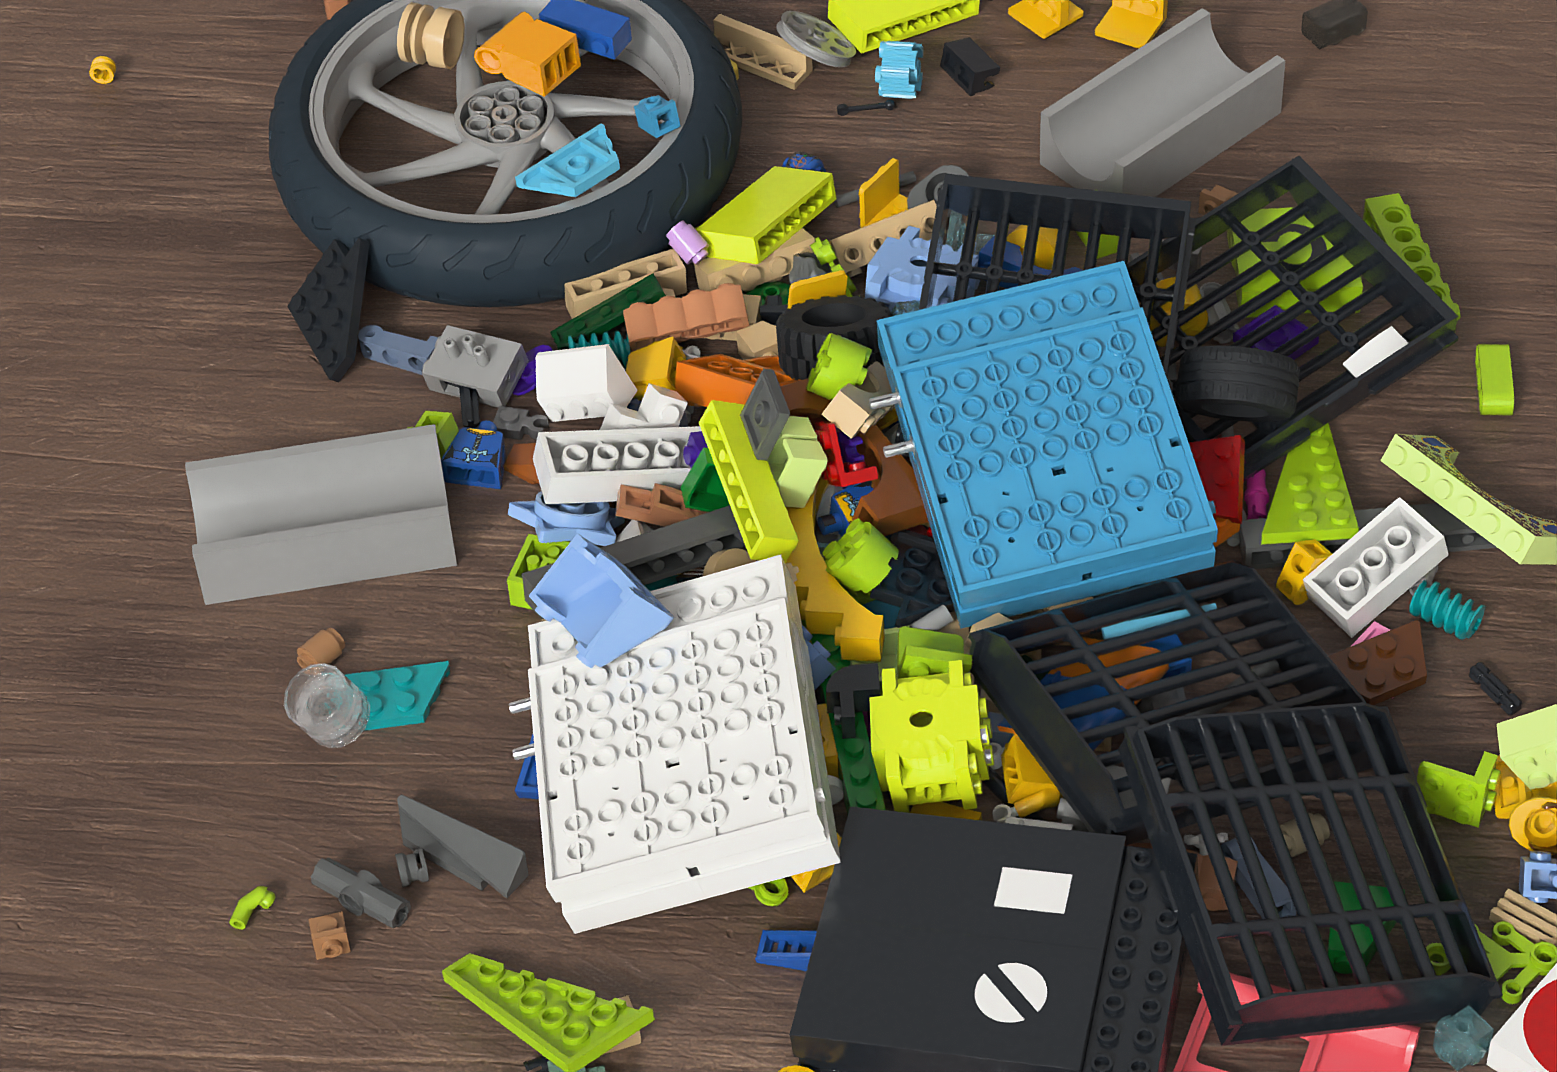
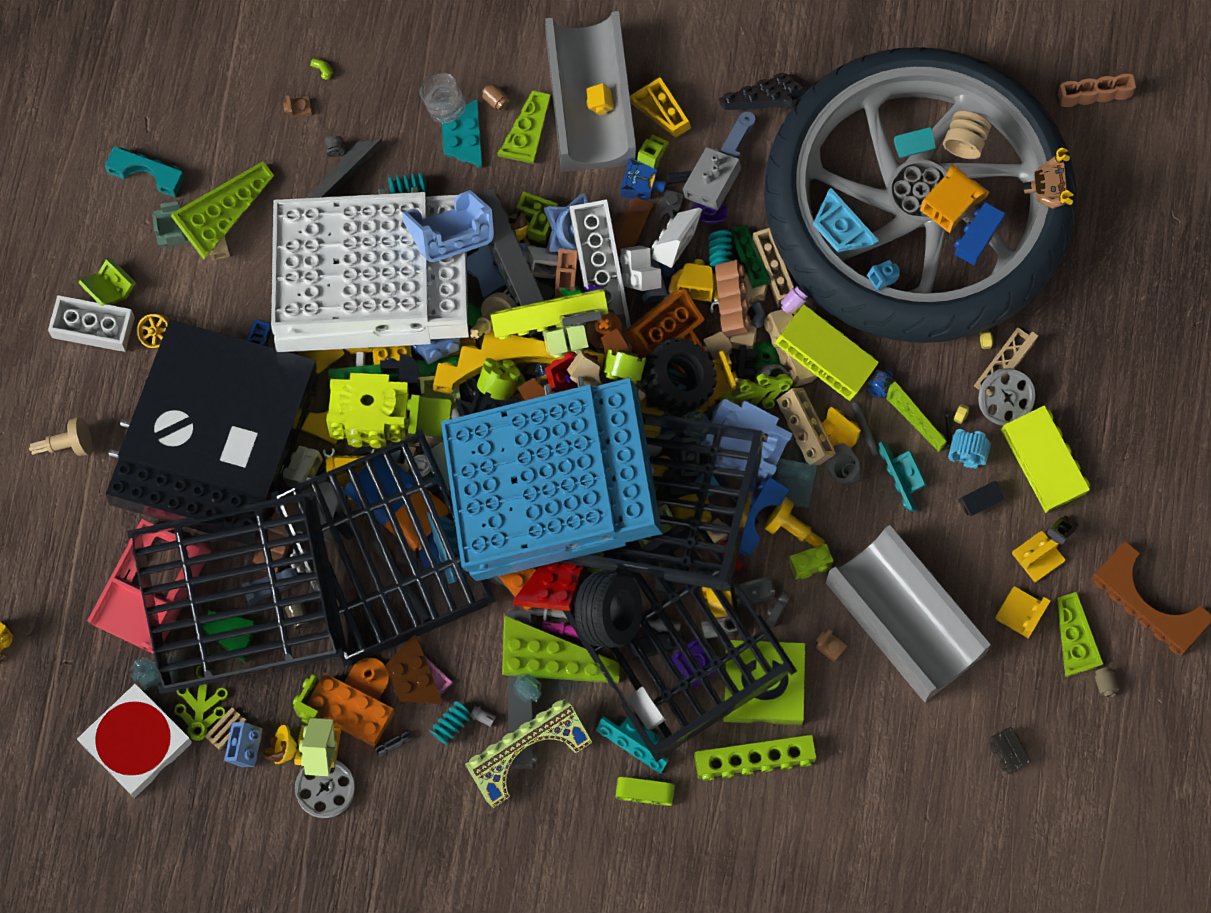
camera: 90 degrees right, 25 degrees up
(339, 494) = (600, 99): none -> yellow brick
(359, 416) = (661, 107): none -> yellow wedge
(360, 892) = (321, 121): dark grey piece -> none
(385, 607) = (525, 135): none -> lime wing
(436, 102) = (914, 142): none -> teal slope
(489, 754) = (402, 186): none -> teal piece
(842, 90) = (961, 414): none -> light yellow tile
(848, 132) = (910, 411): none -> lime wing
(943, 137) = (906, 474): none -> teal bracket
(1301, 562) = (487, 643): yellow leg -> none
(1373, 498) = (527, 688): none -> clear light blue head
(1375, 567) = (478, 681): white brick -> none
(1419, 394) = (630, 740): none -> teal bracket
(1456, 728) = (356, 702): none -> orange brick

